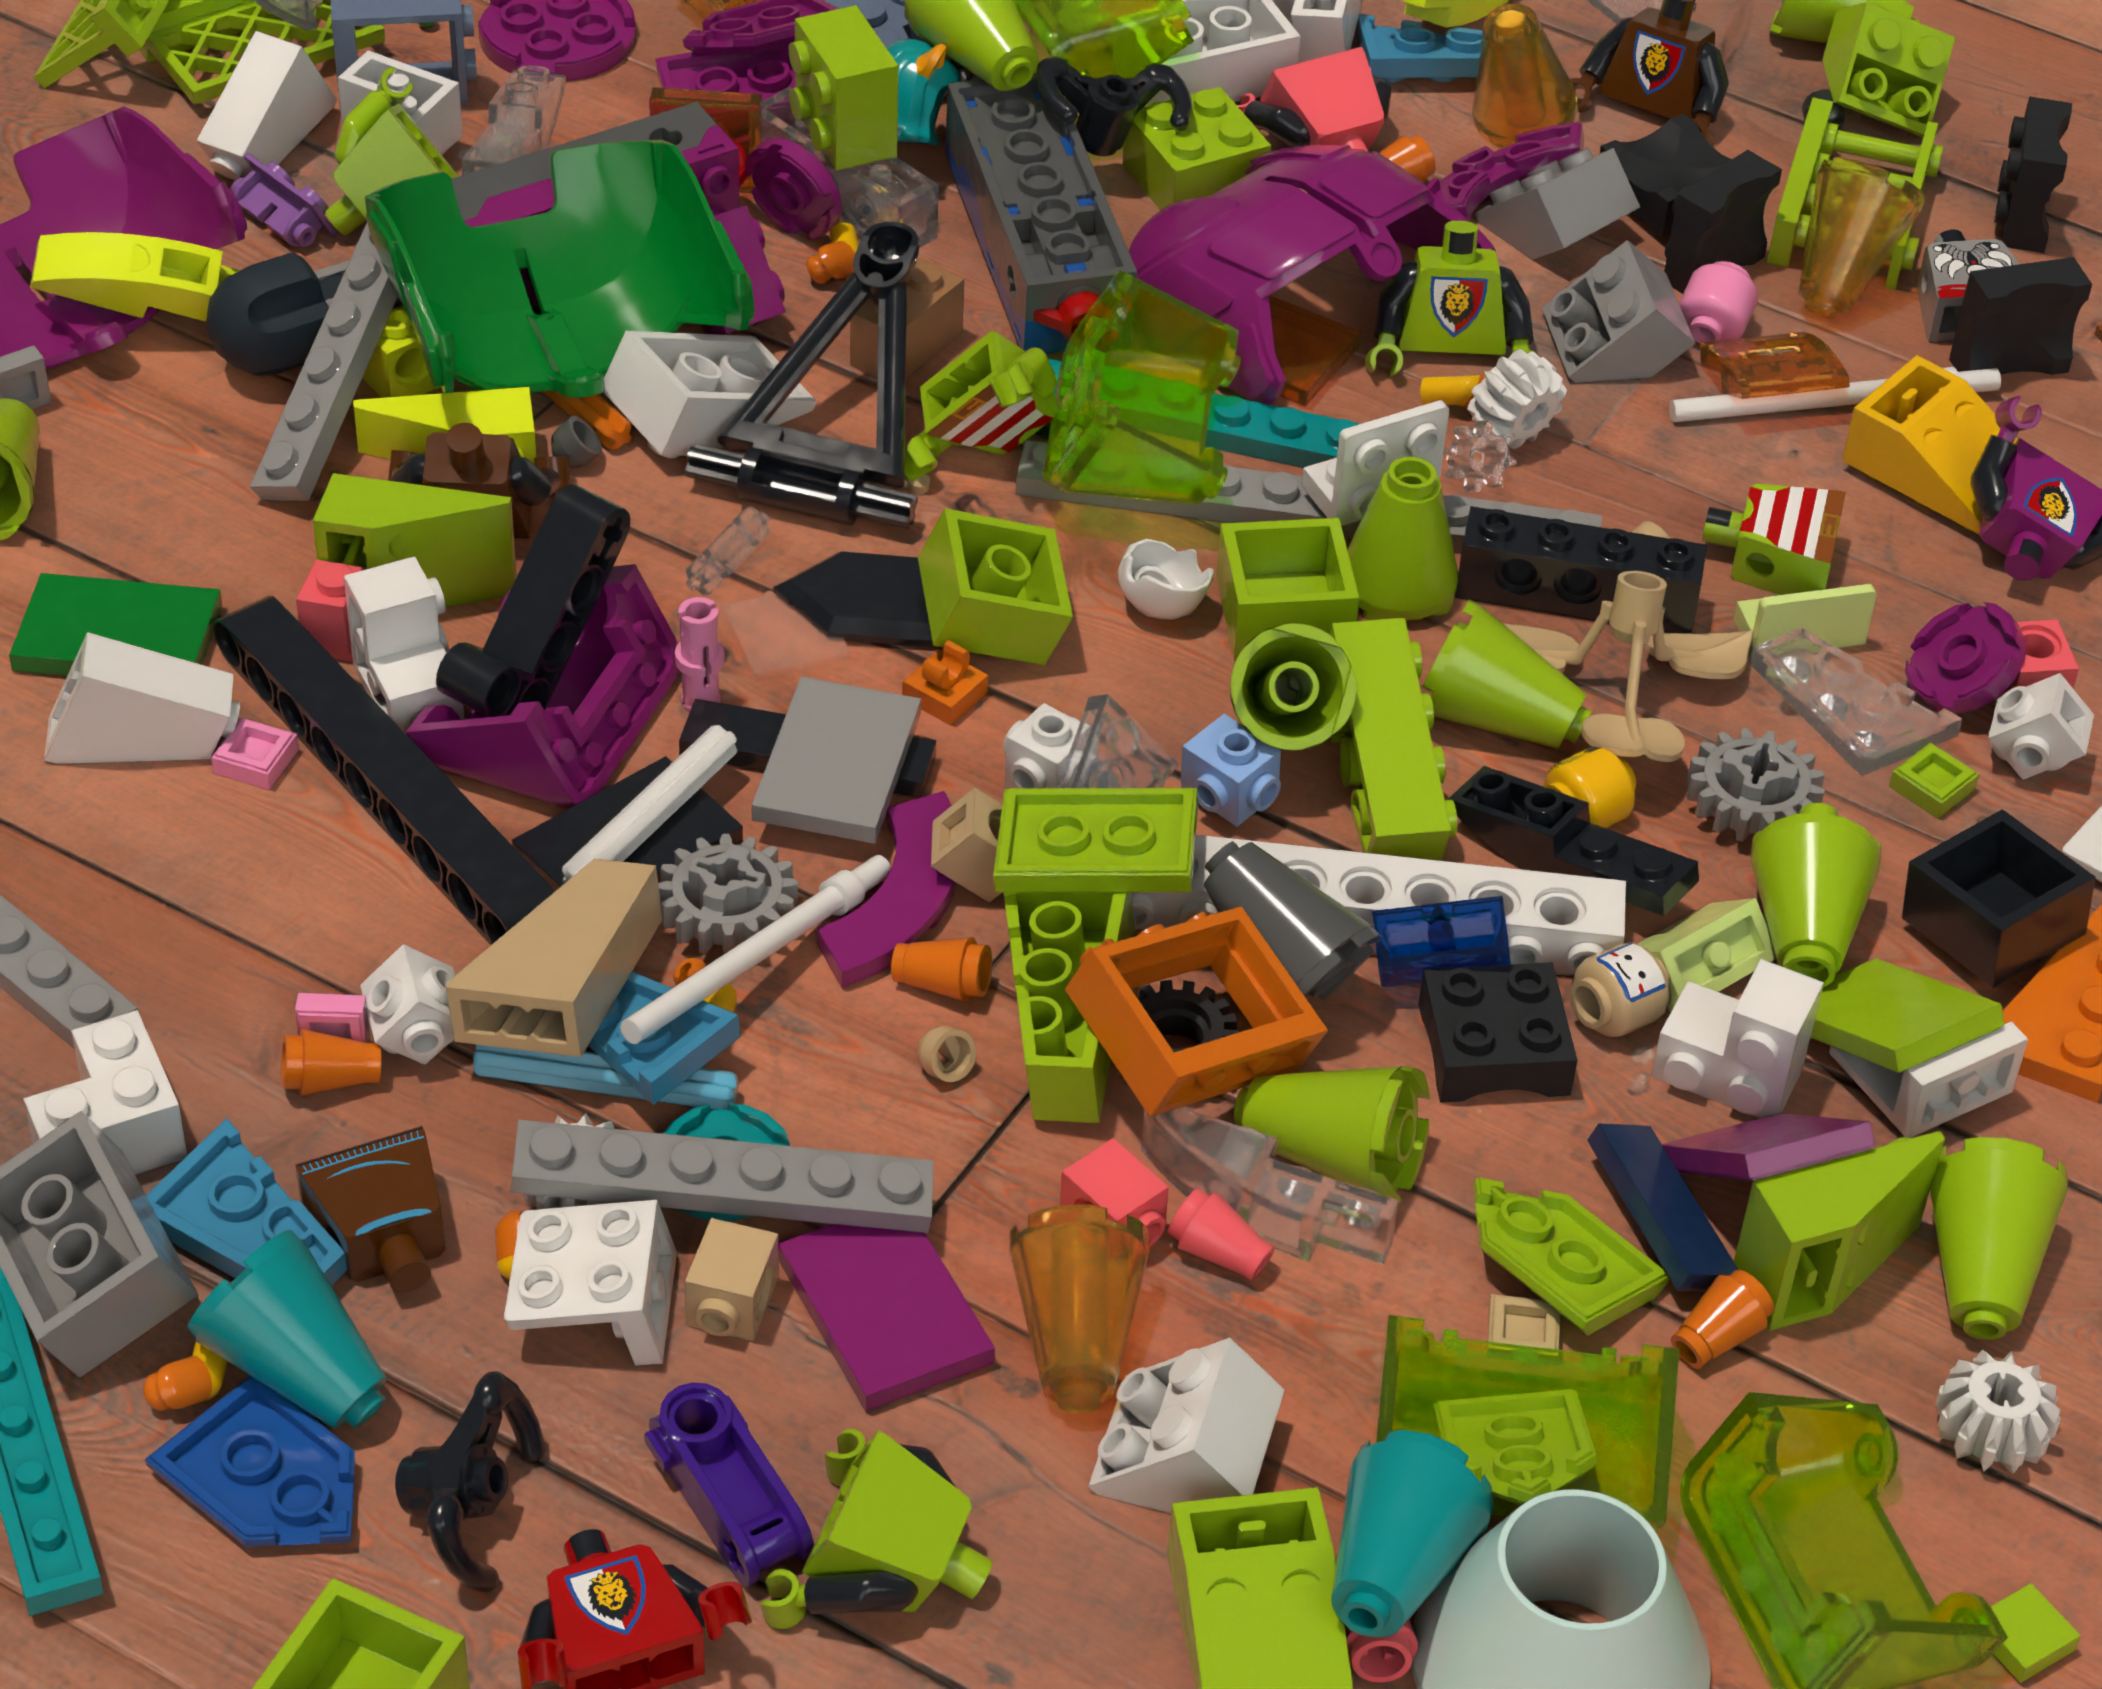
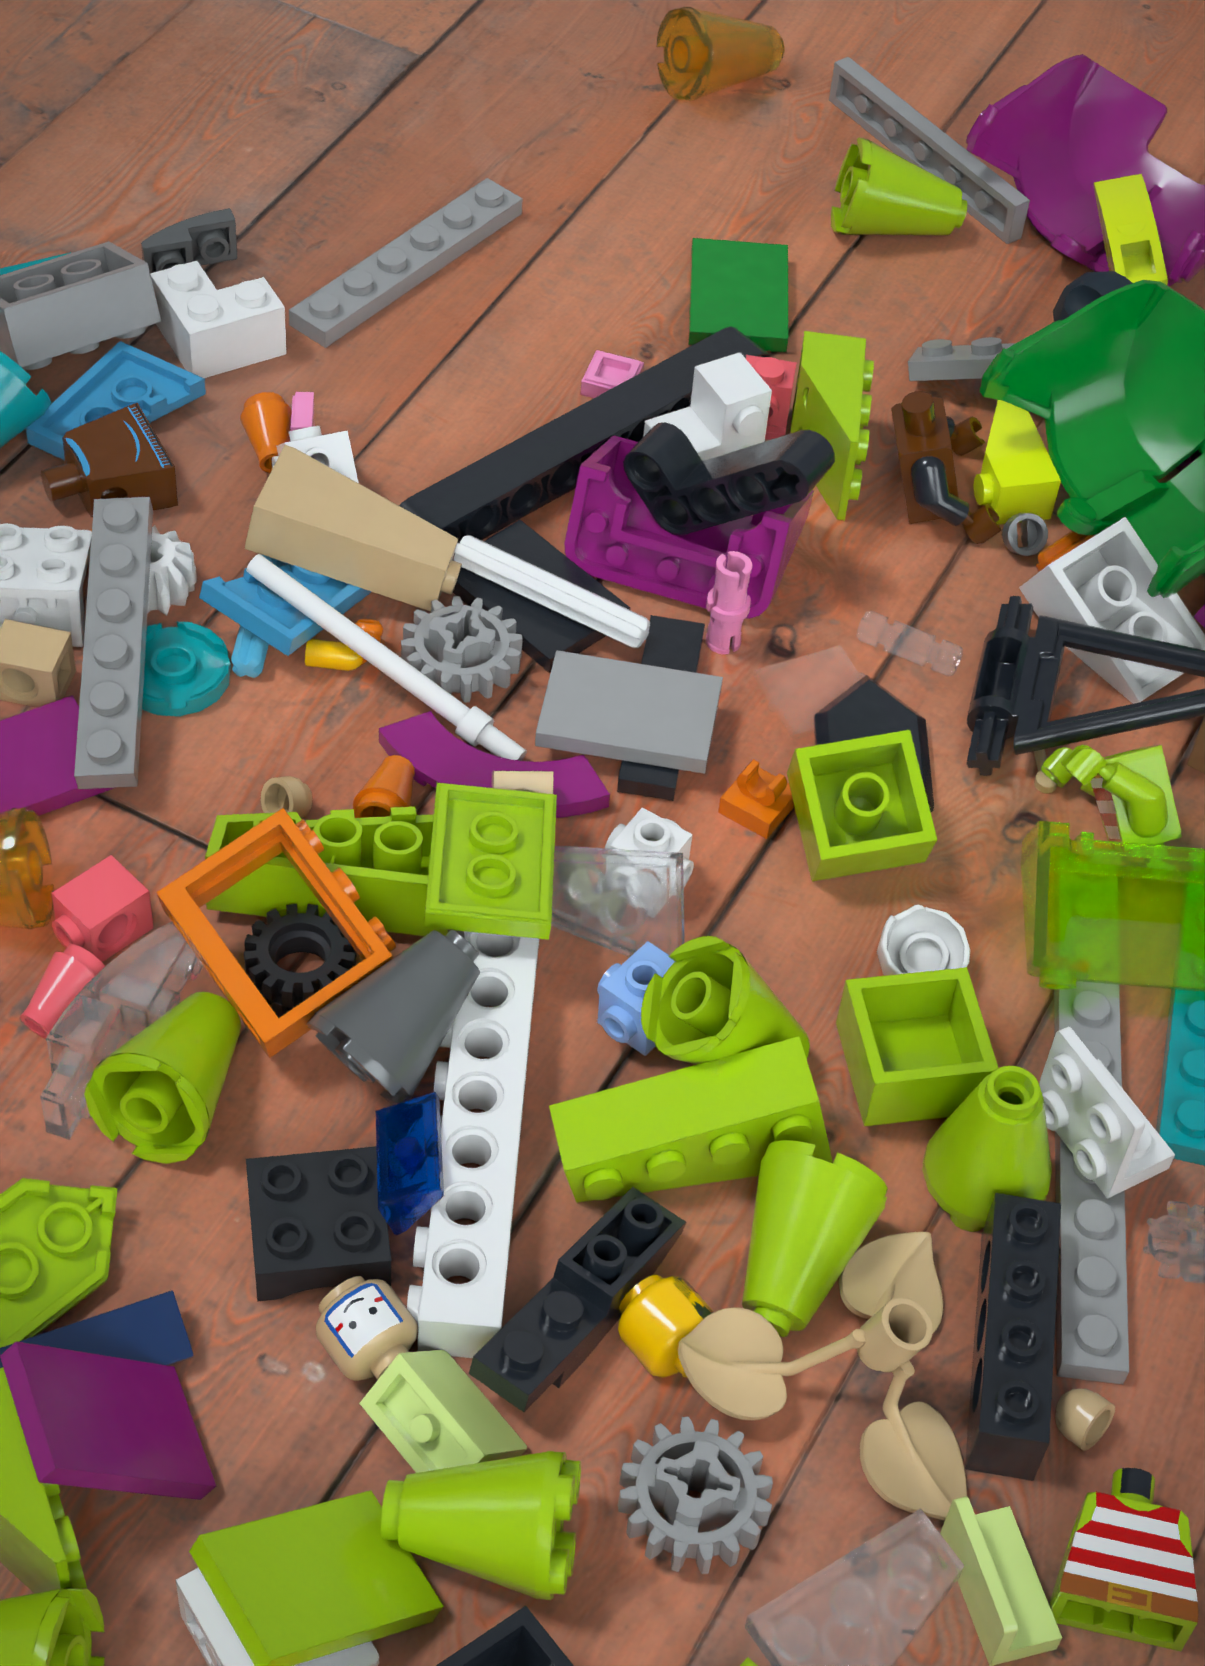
camera: 85 degrees right, 5 degrees up
(138, 707) = (631, 293): white slope -> none
(1741, 1049) = (279, 1430): white brick -> none

